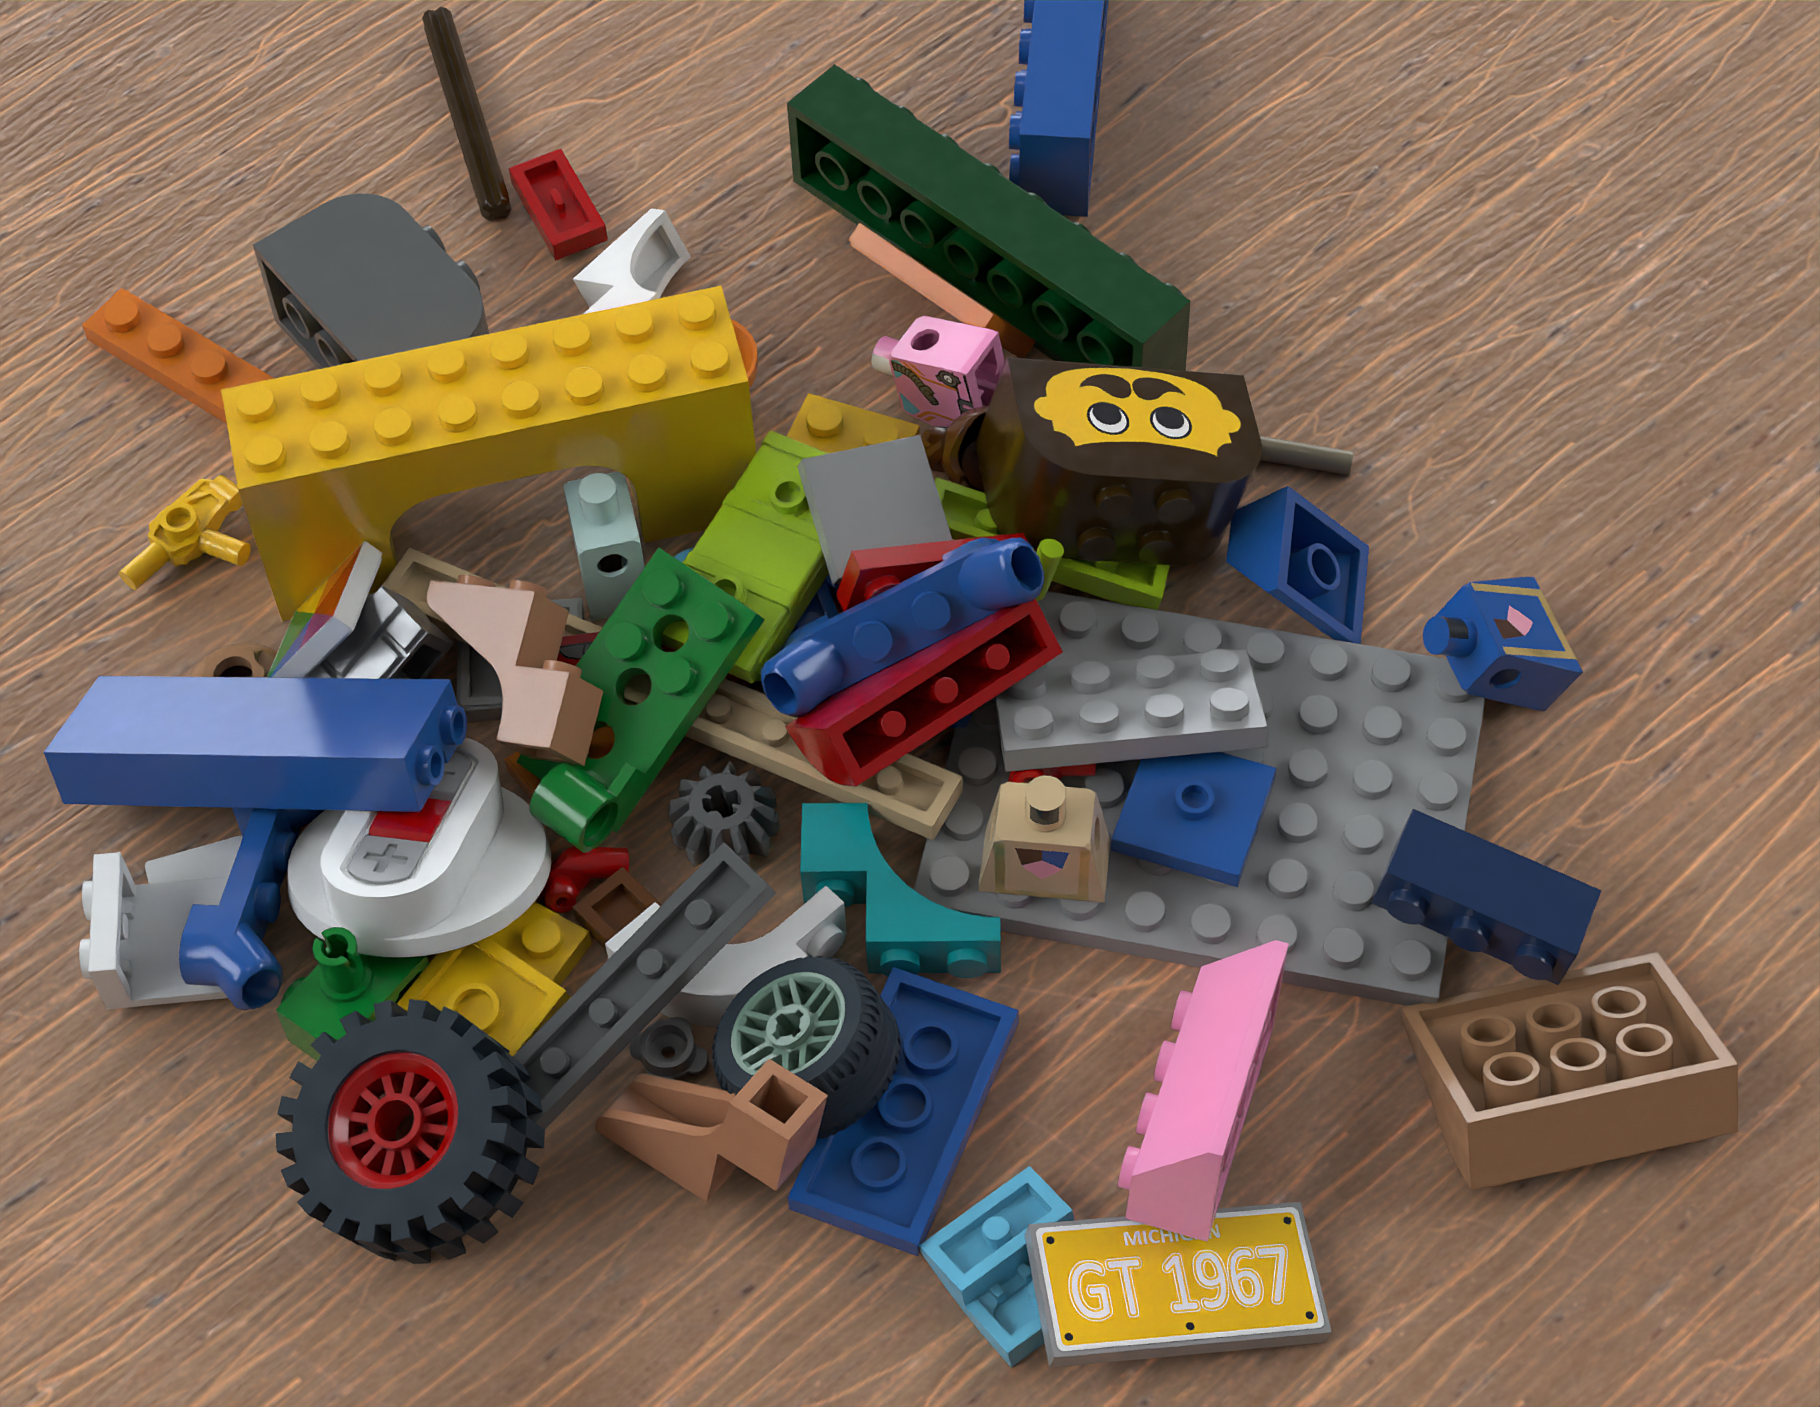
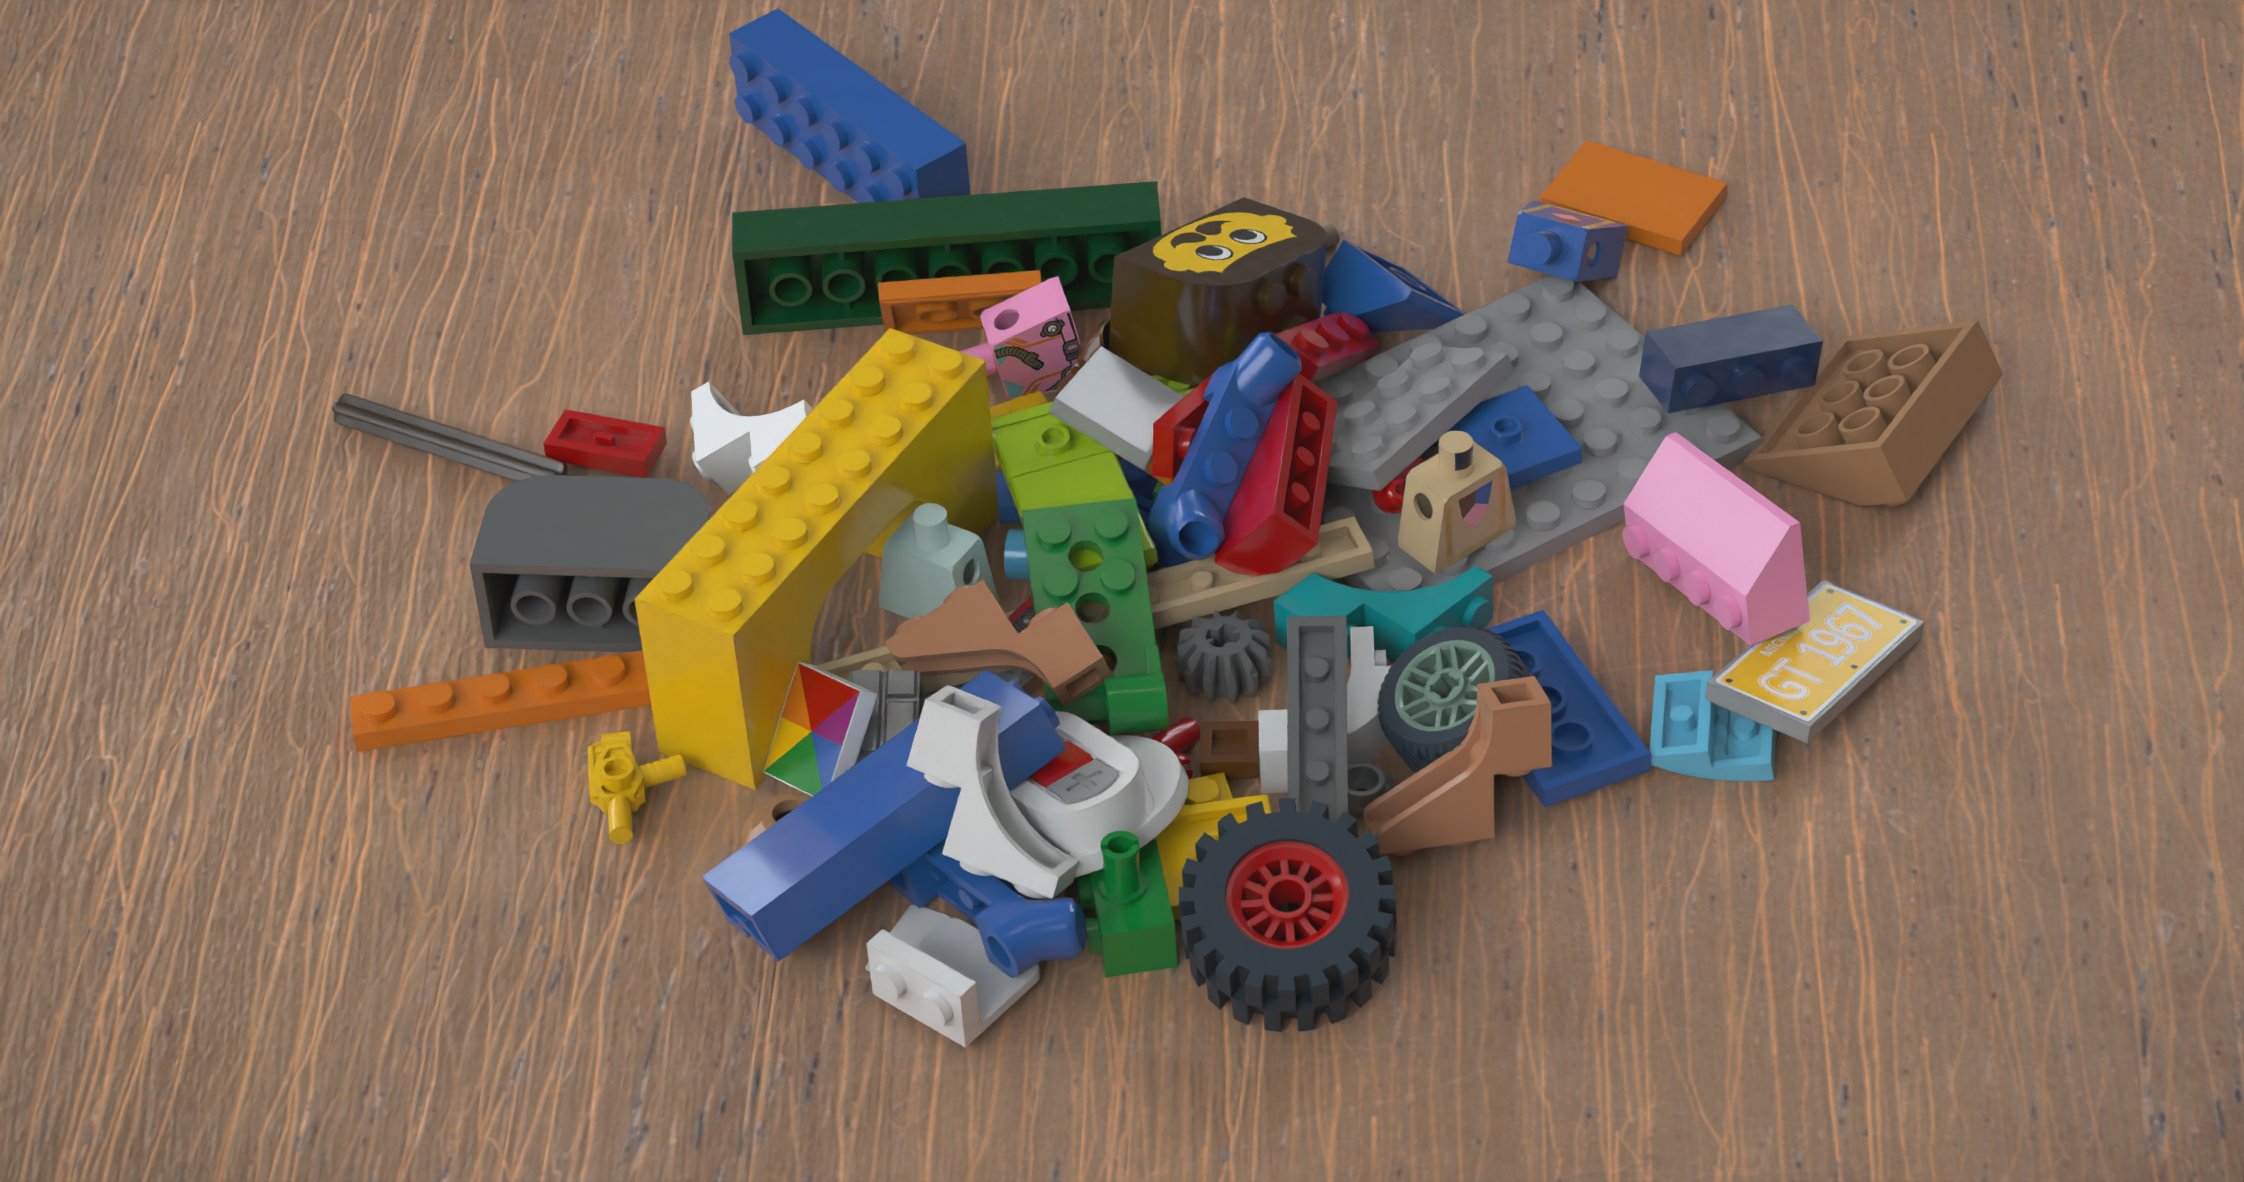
camera: 45 degrees left, 15 degrees down
(265, 833) = (987, 832): none -> white arch
(1147, 581) = (1330, 344): none -> red plate
(1655, 641) = (1655, 200): none -> orange tile

